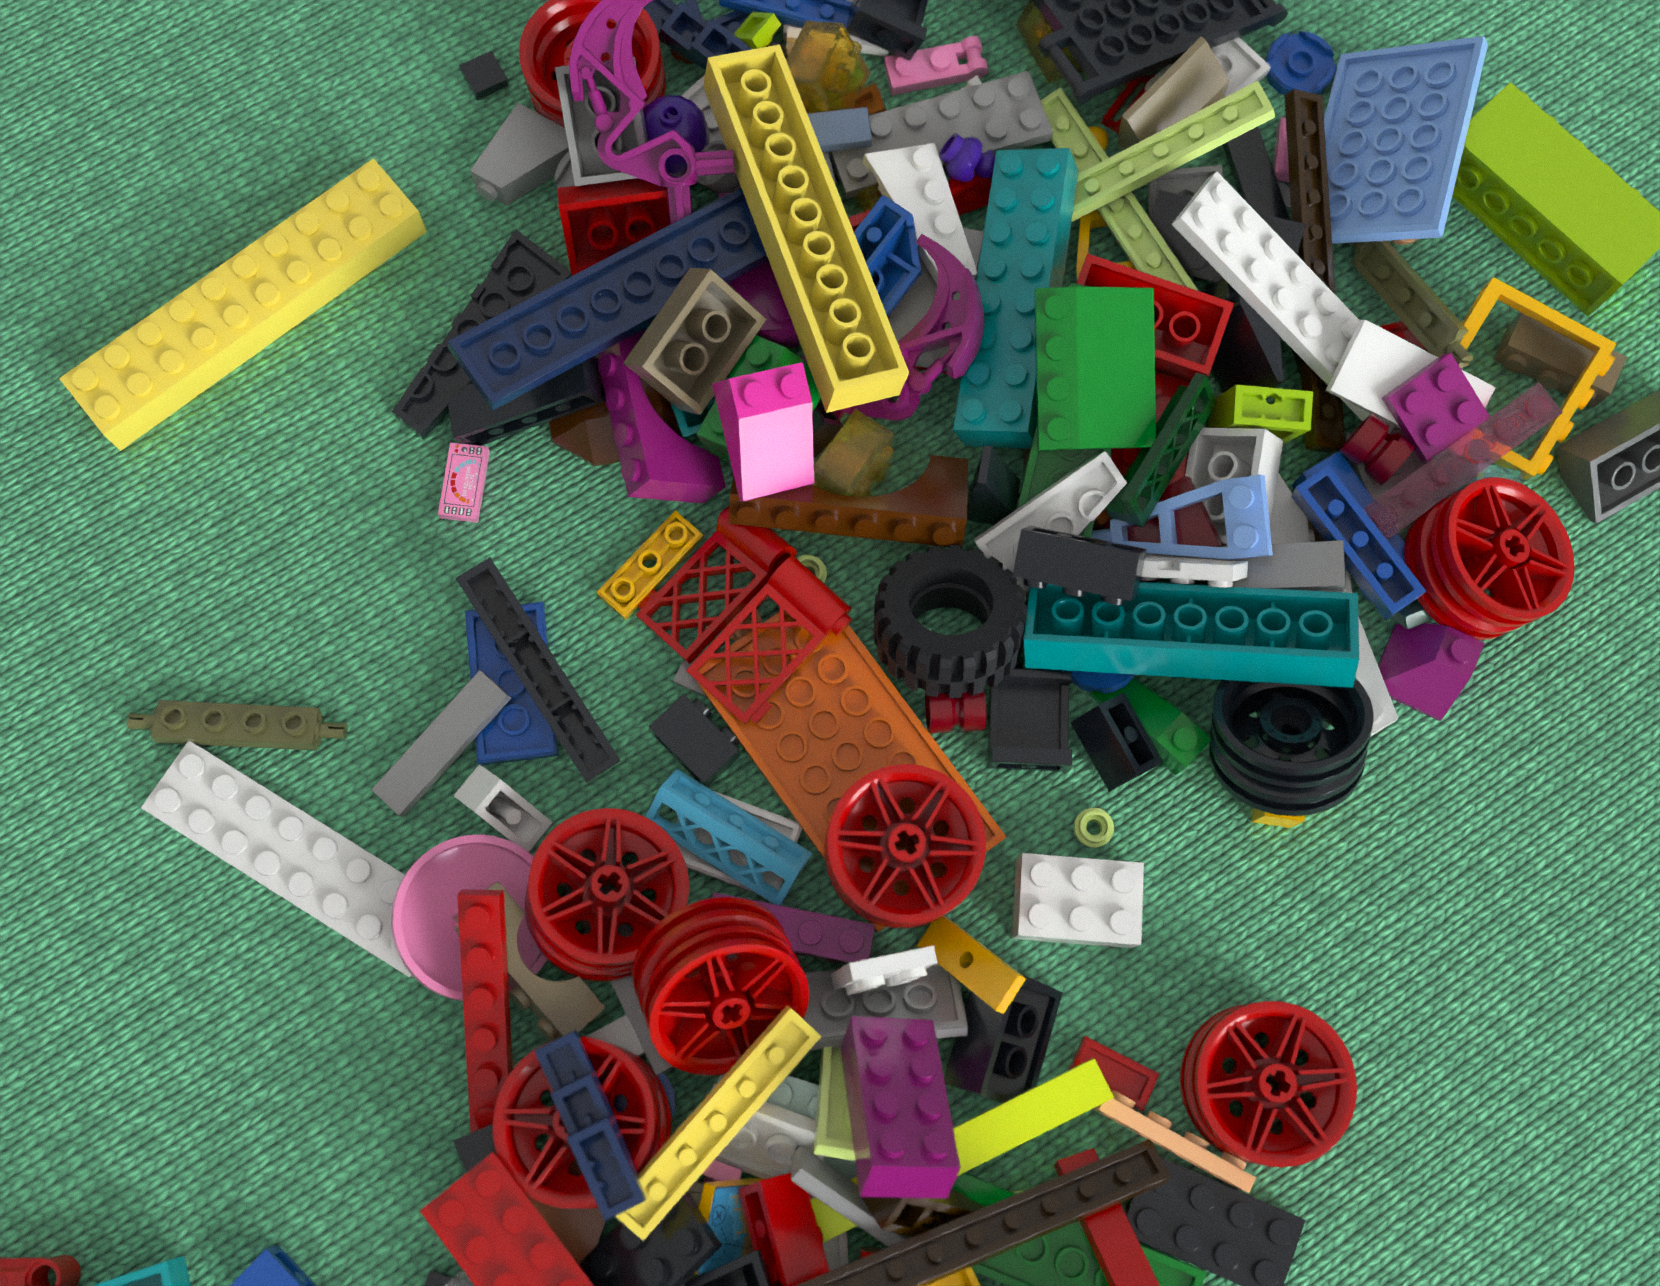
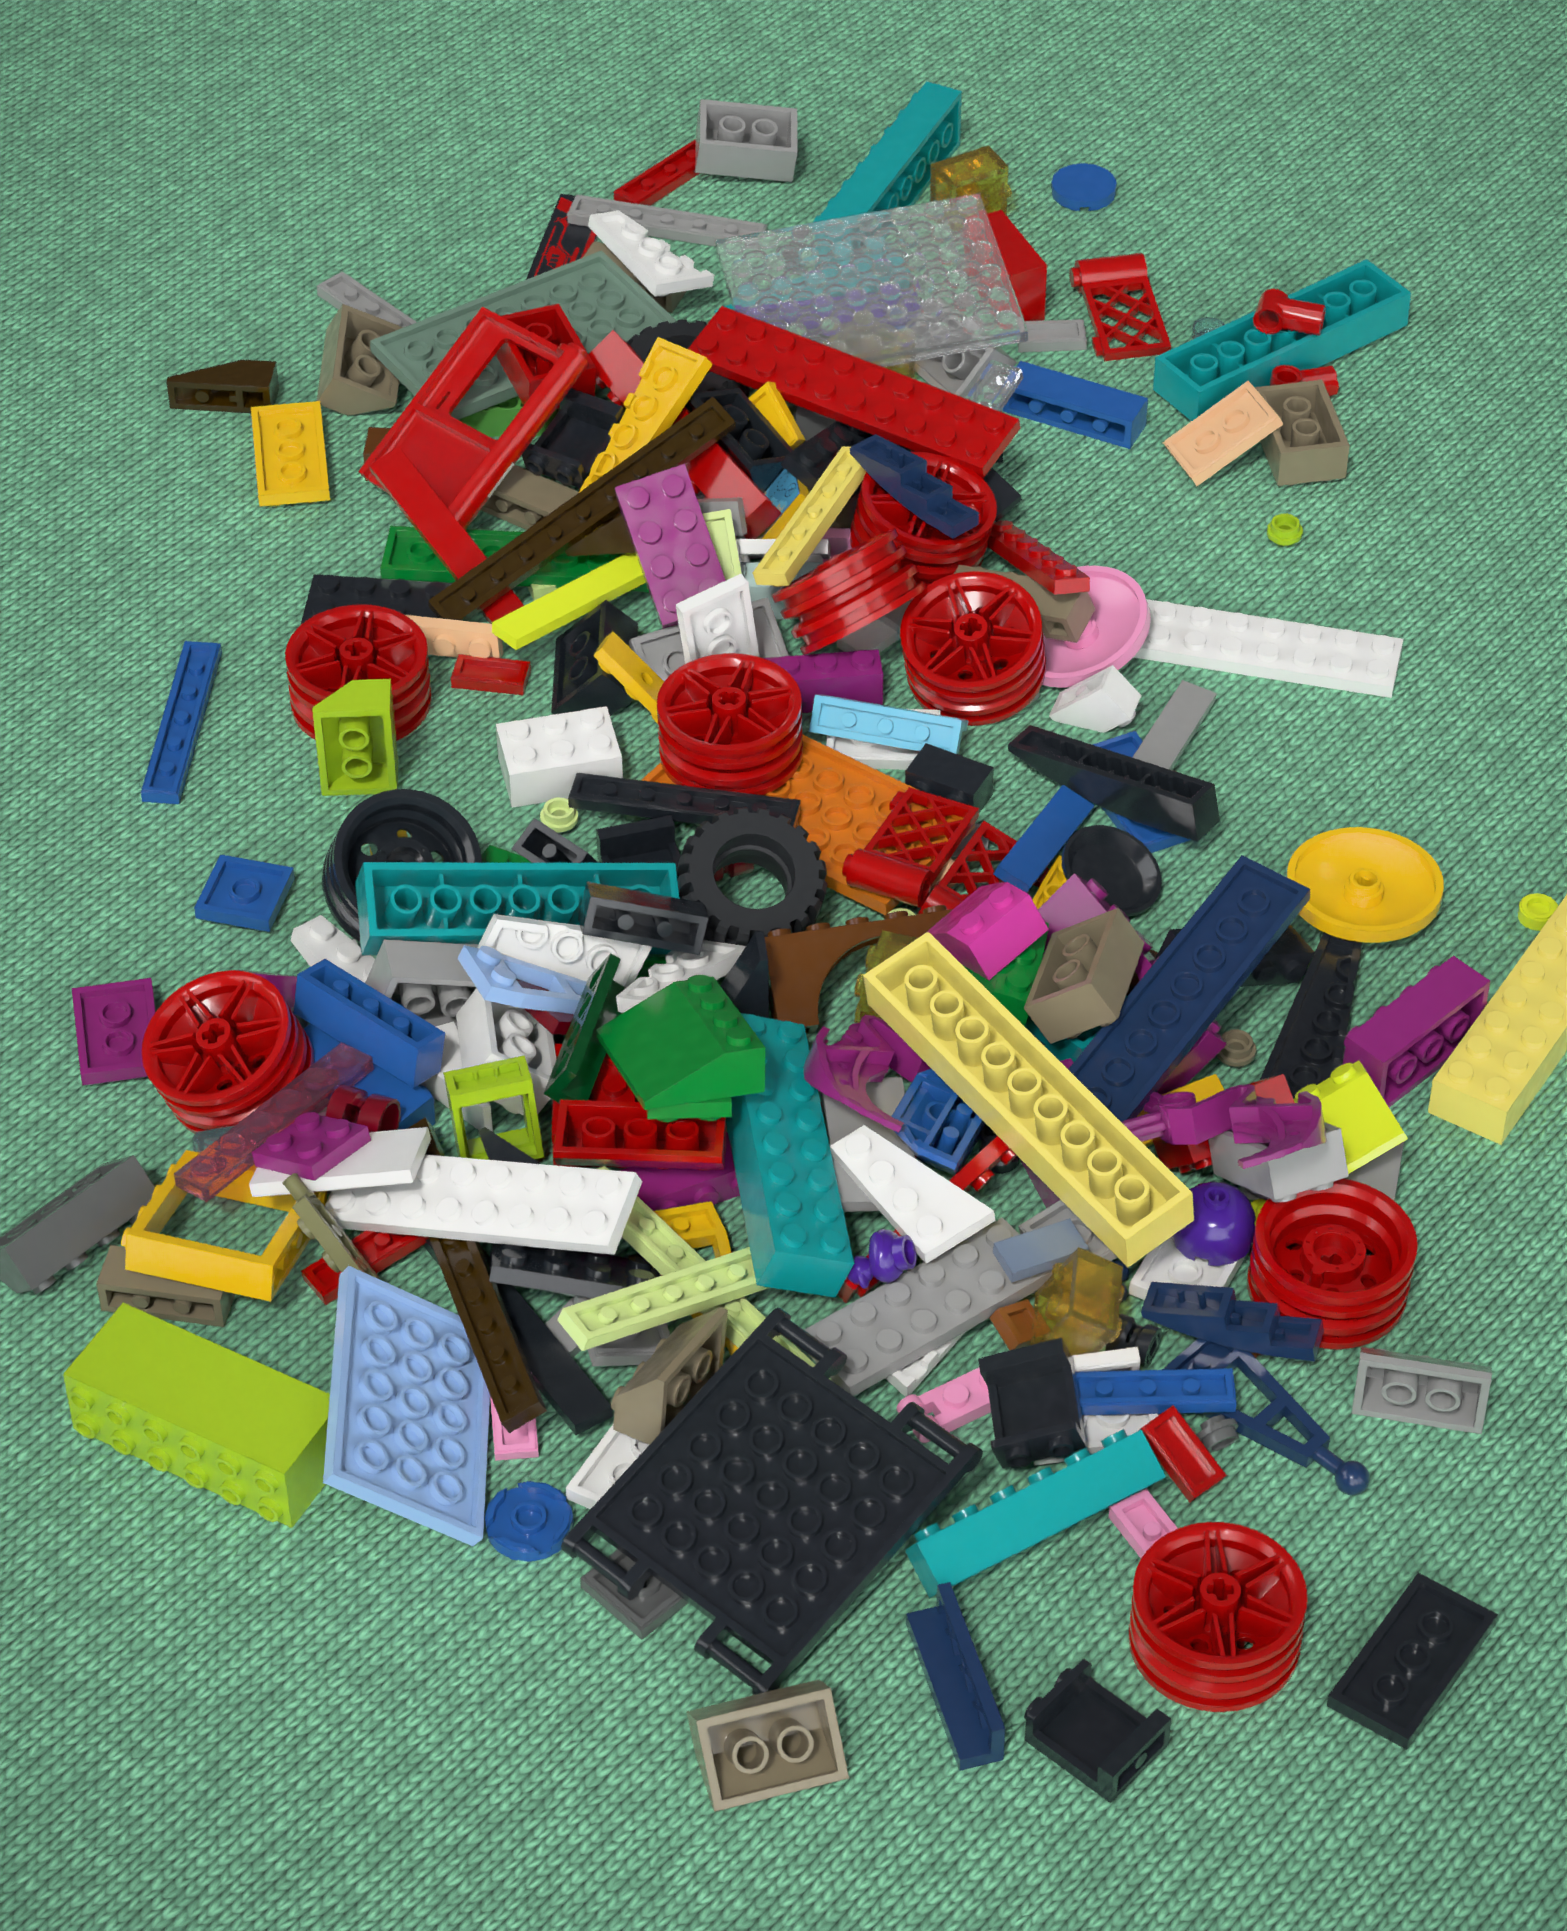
camera: 170 degrees right, 30 degrees down
(78, 1174) = (1310, 441): none -> dark tan brick
(165, 1022) = (1284, 529): none -> lime plate
(169, 1194) = (1223, 433): none -> light nougat tile
(209, 412) = (1536, 910): none -> neon yellow tile
(237, 725) = (1358, 708): olive plate -> none
(358, 467) = (1367, 884): none -> yellow dish
(406, 270) = (1418, 1029): none -> magenta brick
(484, 75) = (1453, 1258): black tile -> none
(516, 173) = (1357, 1107): none -> neon yellow slope
(587, 562) = (1117, 864): none -> black piece
(632, 631) = (1044, 839): none -> blue tile
(758, 29) = (1173, 1339): lime plate -> none
(986, 787) = (662, 799): none -> black tile
(1289, 950) = (357, 739): none -> lime slope
(1427, 813) = (244, 893): none -> blue plate
(1453, 1105) = (181, 723): none -> blue tile
(1572, 669) = (112, 1029): none -> magenta plate

